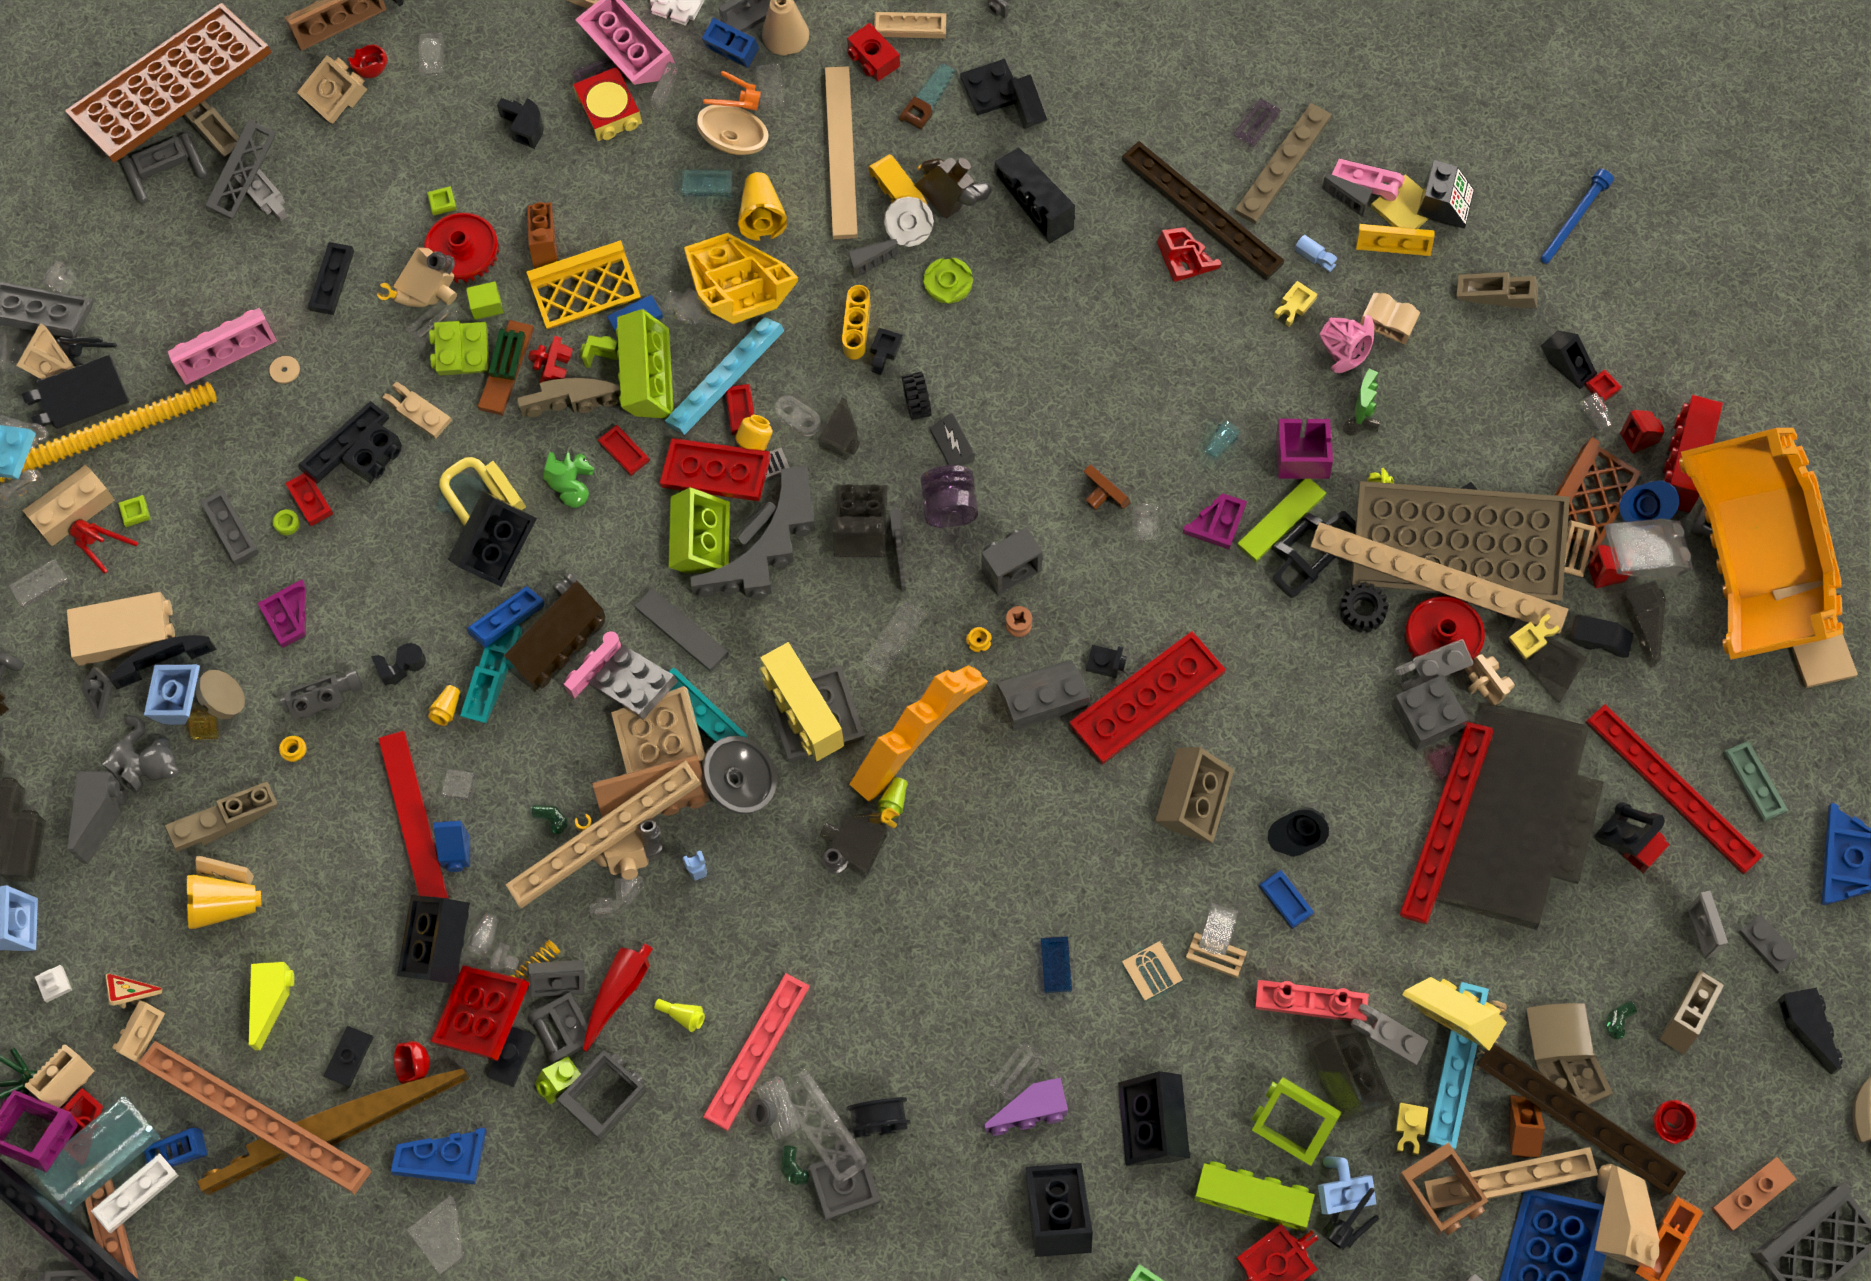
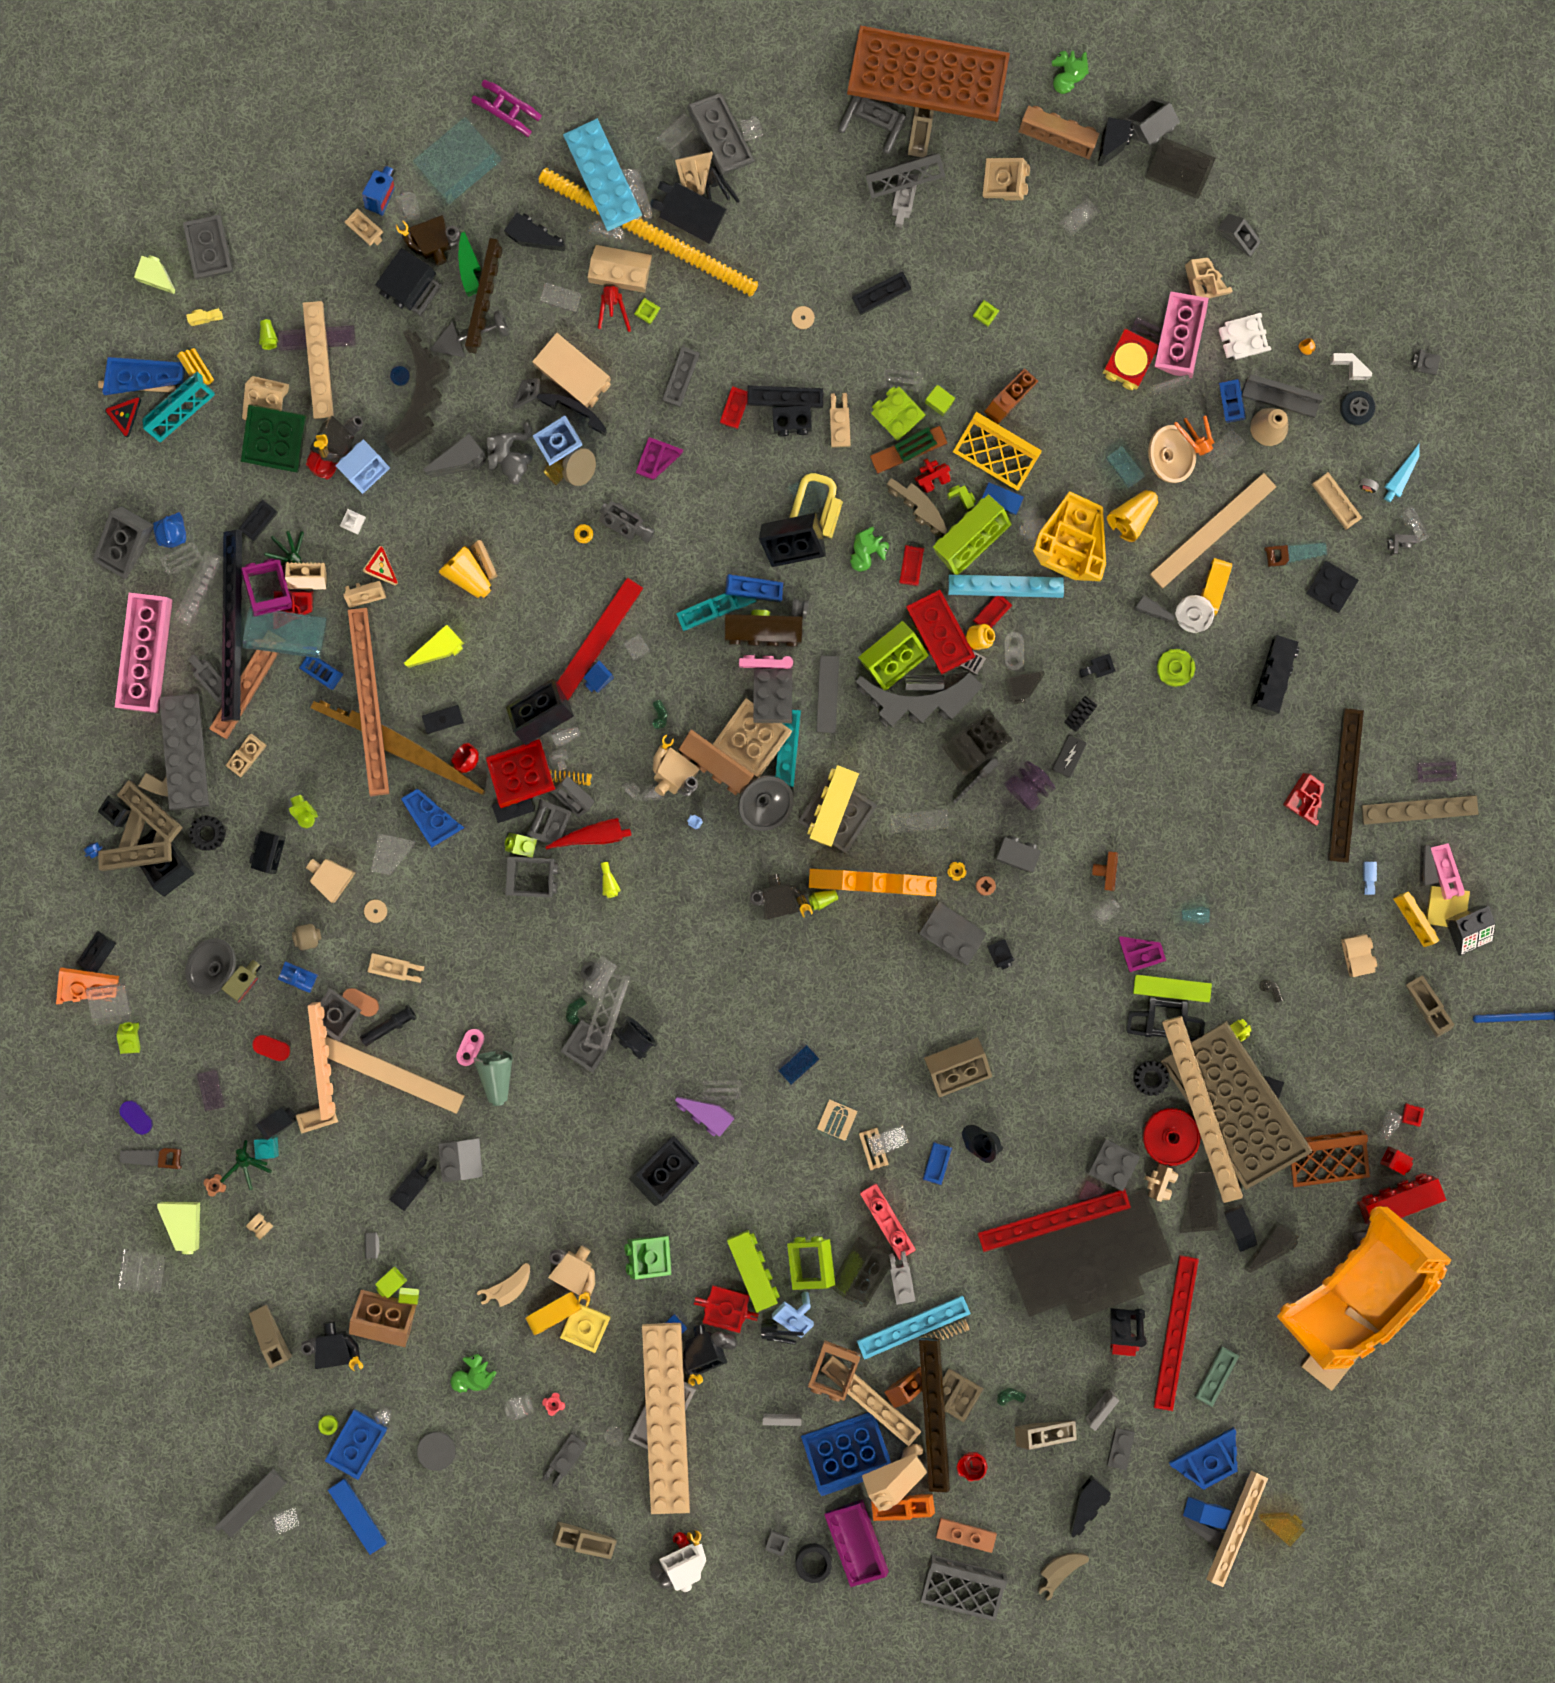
camera: 45 degrees right, 20 degrees up
(134, 1193) = (281, 672): white tile -> none
(221, 346) = (786, 268): bright pink slope -> none
(223, 818) = (513, 531): dark tan slope -> none
(286, 522) = (710, 406): lime tile -> none
(364, 56) = (1039, 177): red hair -> none
(407, 658) = (686, 552): black leg -> none
(424, 280) = (921, 353): tan torso -> none
(444, 706) = (675, 598): yellow cone -> none
(467, 240) = (961, 367): red wheel -> none
(526, 120) = (1079, 322): black brick -> none
(603, 834) = (669, 759): tan tile -> none
(756, 1052) = (621, 939): coral tile -> none
(856, 312) = (1111, 634): yellow beam -> none
(870, 41) = (1302, 484): red brick -> none
(950, 186) = (1238, 620): dark brown torso -> none
(1026, 101) = (1337, 619): black panel -> none
(1147, 697) = (997, 995): red plate -> none
(1153, 1119) = (752, 1185): black slope -> none
(1295, 301) = (1326, 890): light yellow plate -> none
(1304, 456) = (1222, 970): magenta piece -> none
(1341, 338) = (1320, 940): bright pink piece -> none
(1365, 402) = (1290, 981): bright green slope -> none
(1412, 1123) = (861, 1324): light yellow plate -> none
(1436, 663) = (1144, 1146): light grey hinge -> none
(1457, 1011) = (940, 1308): light yellow slope -> none
(1531, 638) = (1204, 1190): light yellow plate -> none
(1560, 1032) = (976, 1370): dark tan slope -> none
(1569, 357) = (1414, 1082): black slope -> none
(1586, 550) = (1290, 1181): tan tile -> none
(1603, 568) = (1288, 1203): red slope -> none
(1649, 502) = (1346, 1199): blue piece -> none
(1649, 548) = (1316, 1219): clear slope -> none

